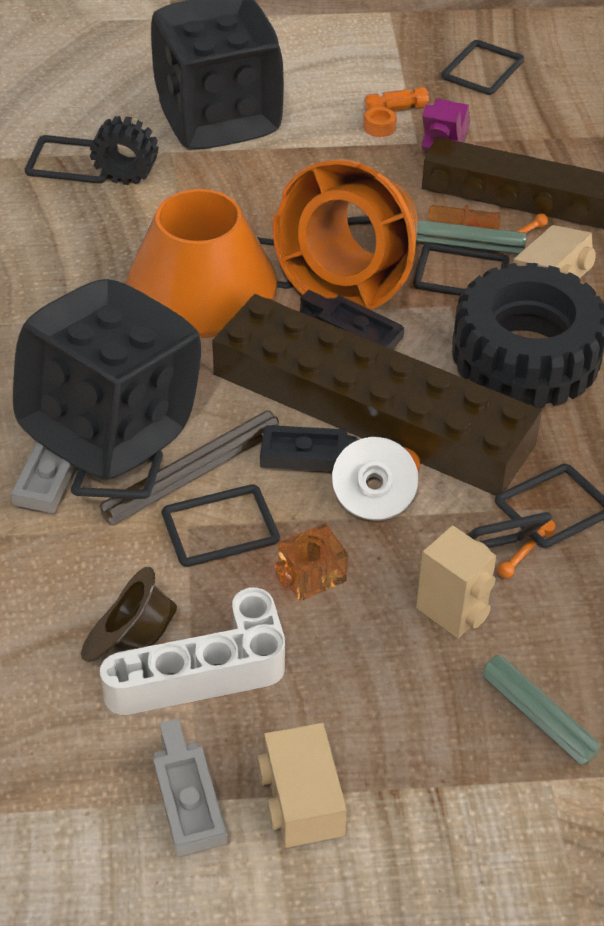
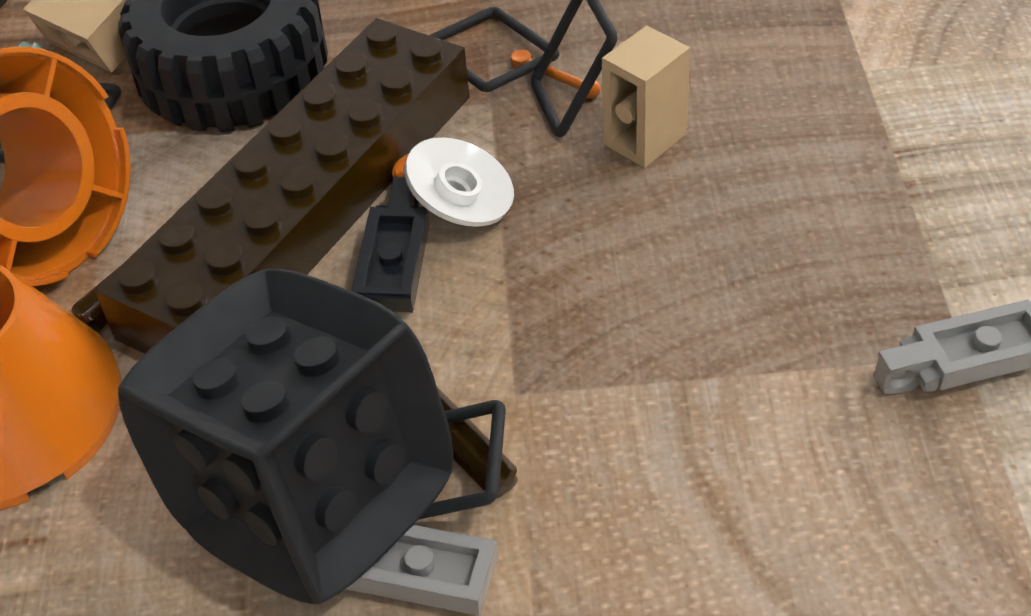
camera: 85 degrees left, 0 degrees up
(133, 620) = (722, 424): dark brown piece -> none
(138, 679) = (760, 295): white beam -> none
(229, 551) = (542, 403): black piece -> none
(303, 785) = (948, 229): tan brick -> none
(311, 562) = (599, 240): clear orange brick -> none
(352, 318) = (137, 218): black hinge -> none
(541, 710) = (783, 66): sand green axle -> none

